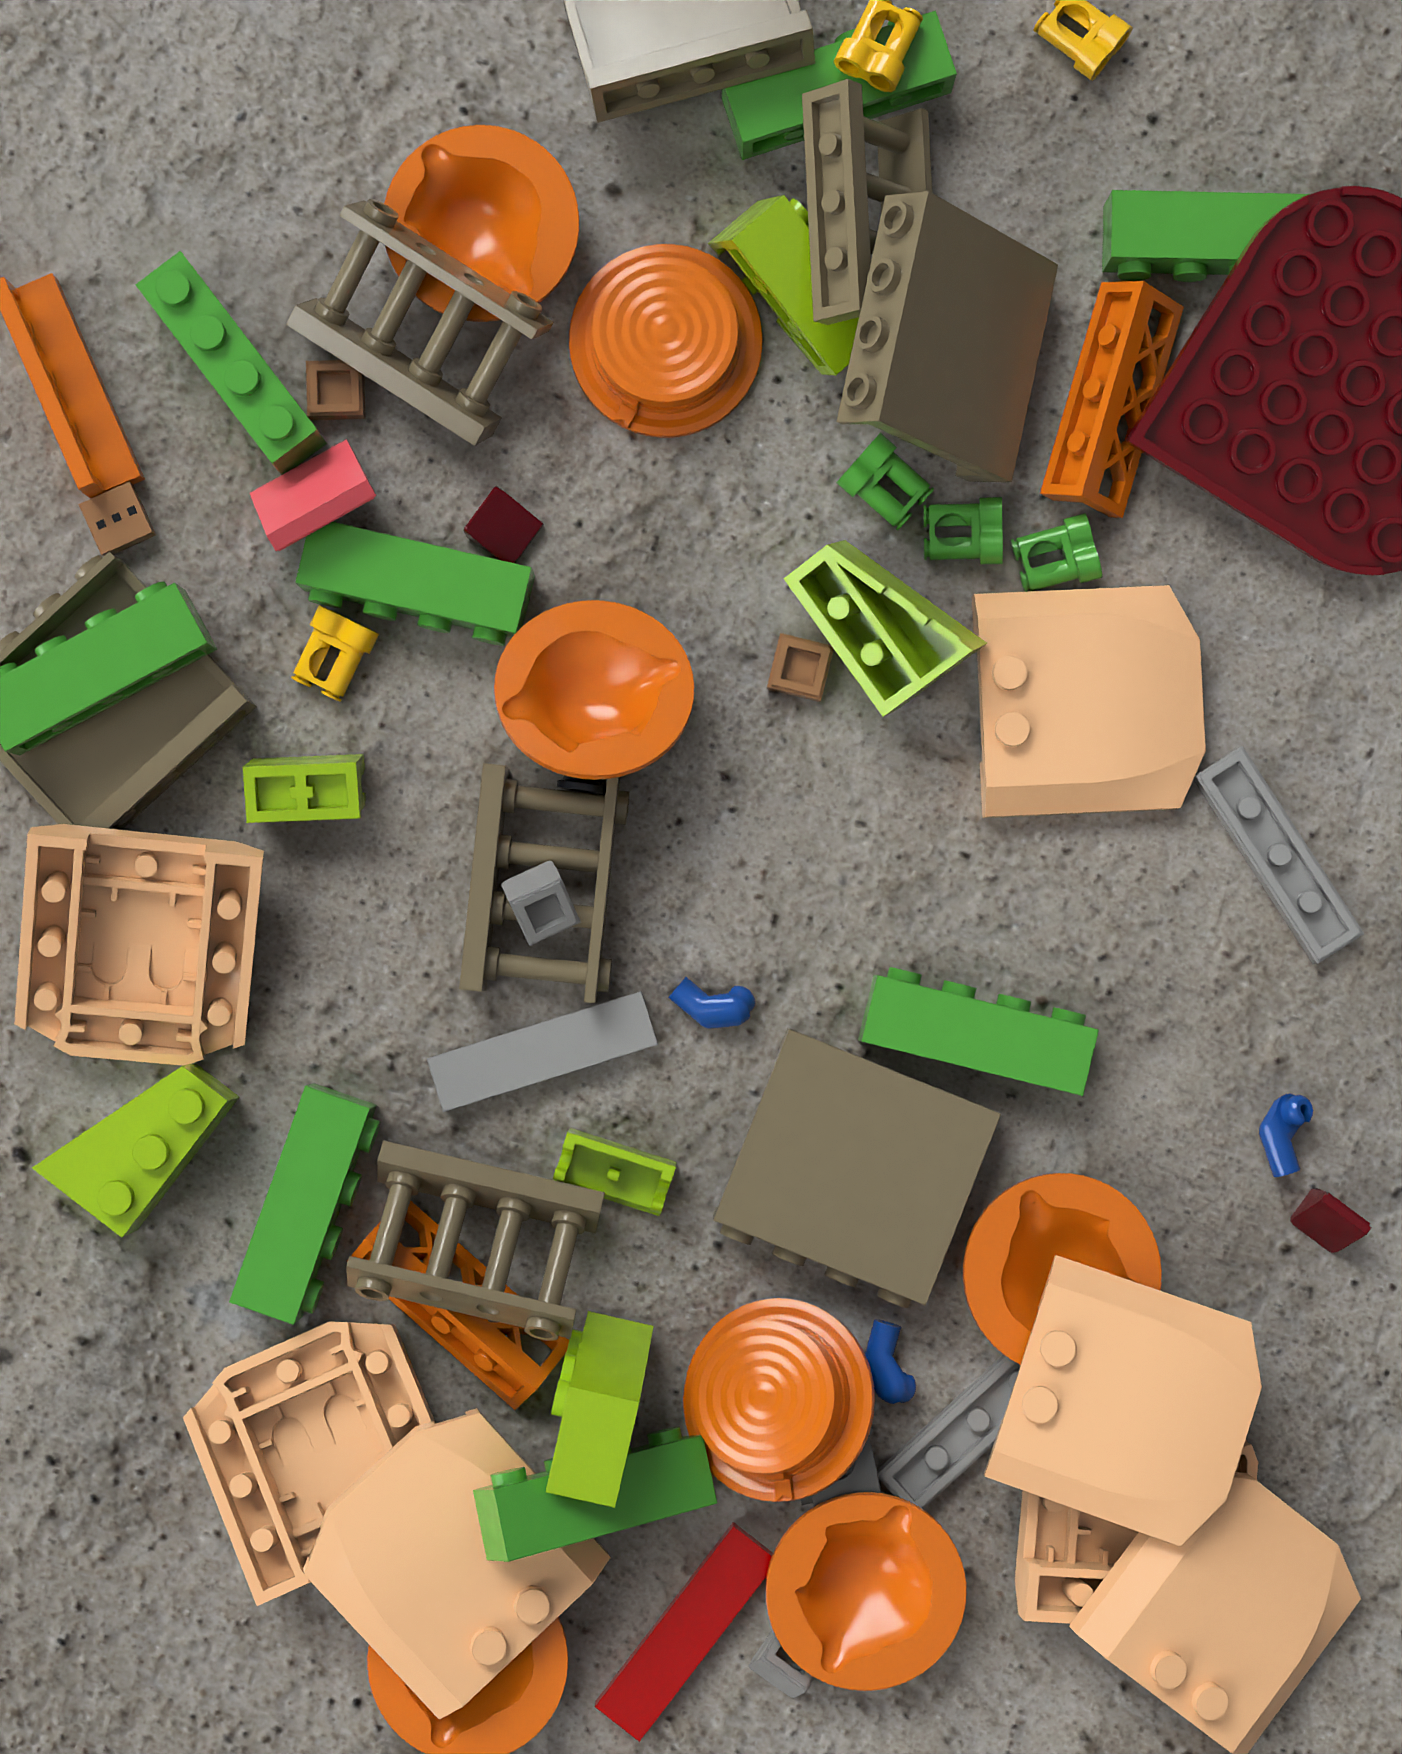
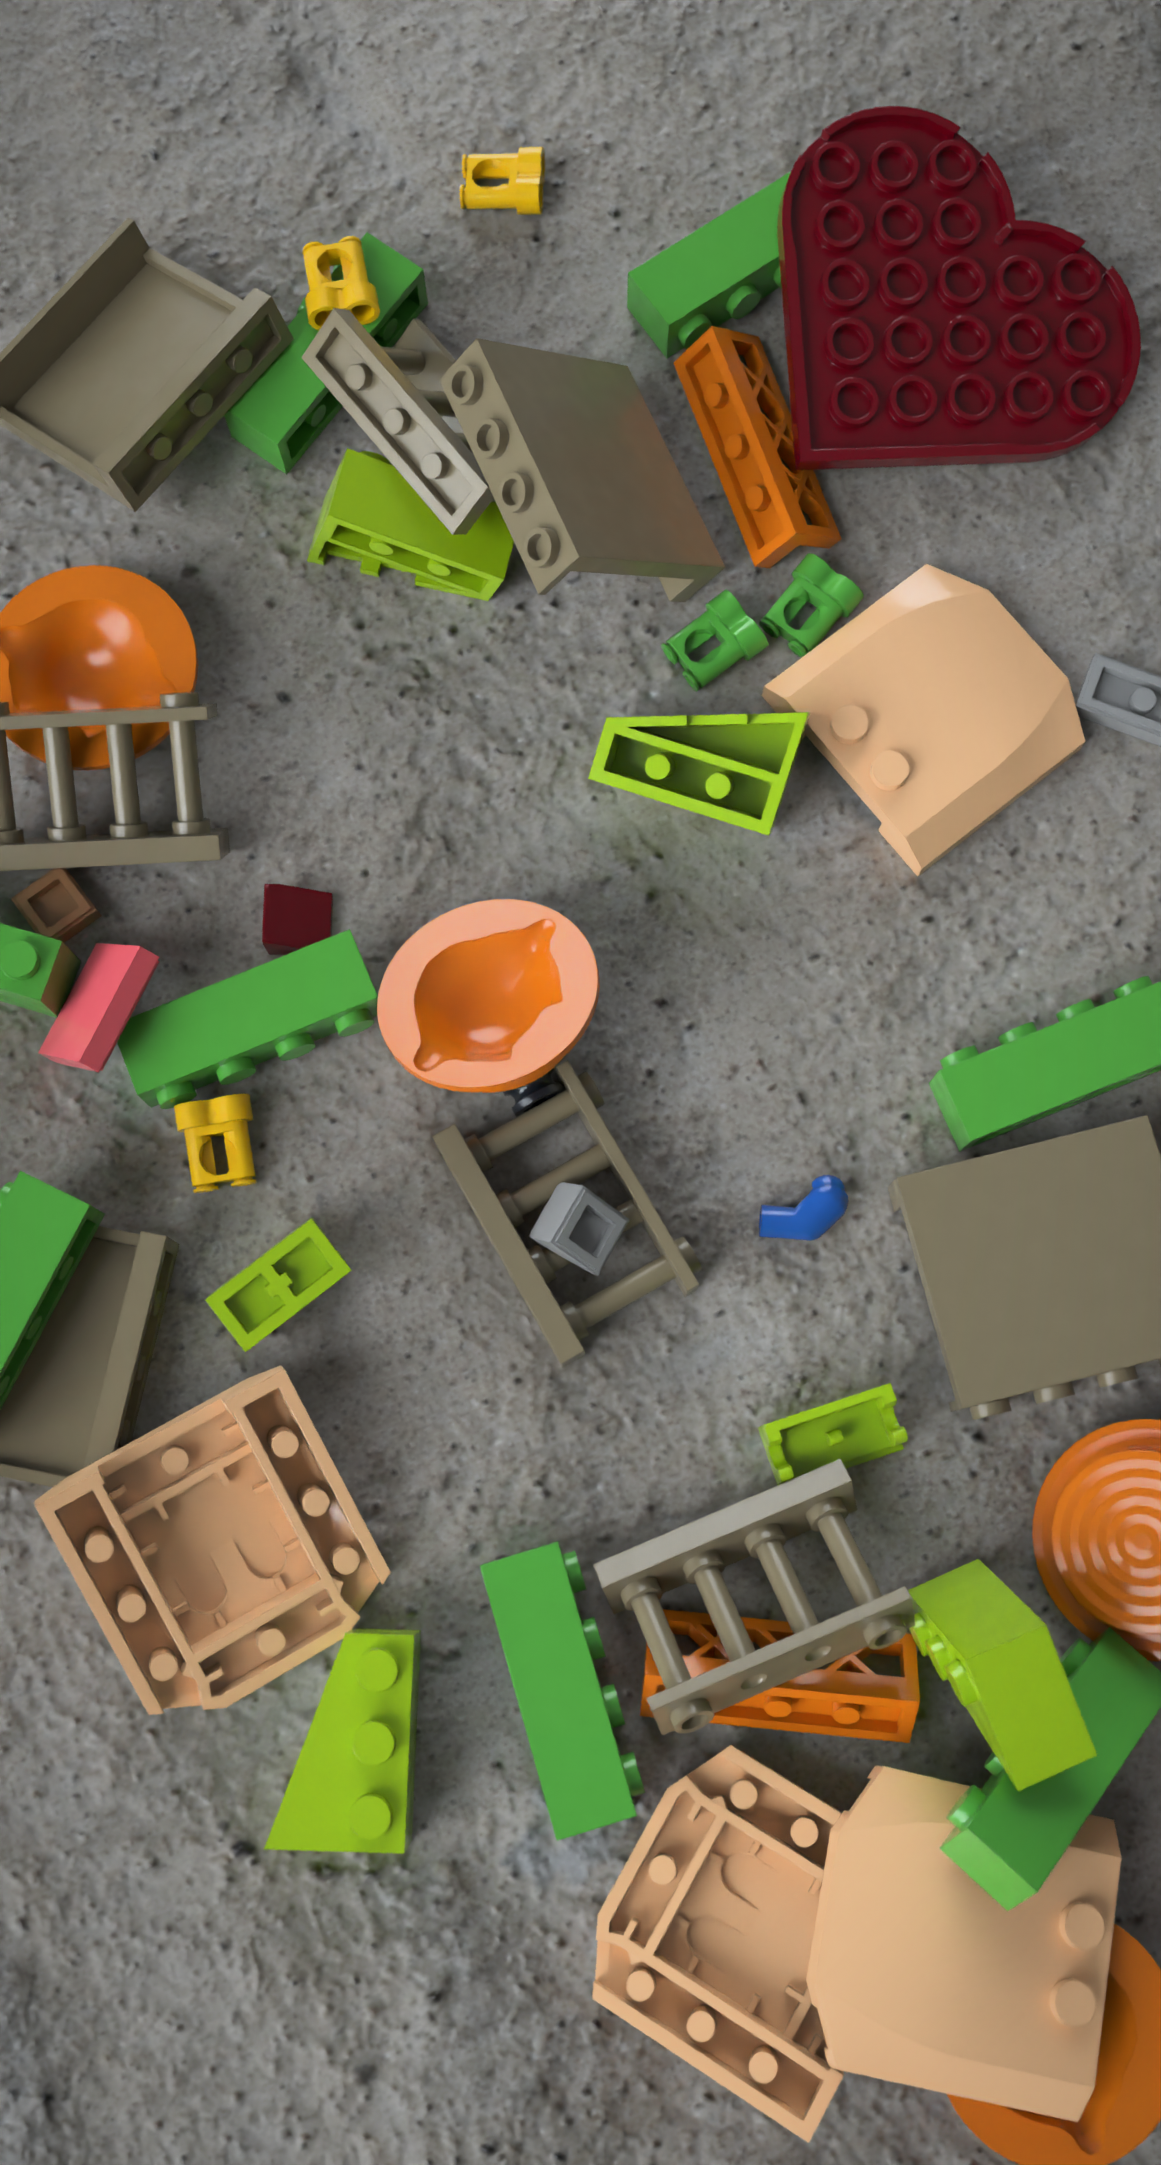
camera: 30 degrees left, 10 degrees down
(542, 1051) = (679, 1372): light grey tile -> none
(665, 340) = (328, 665): orange piece -> none
(800, 667) = (657, 857): medium nougat tile -> none
(870, 467) = (590, 648): bright green piece -> none

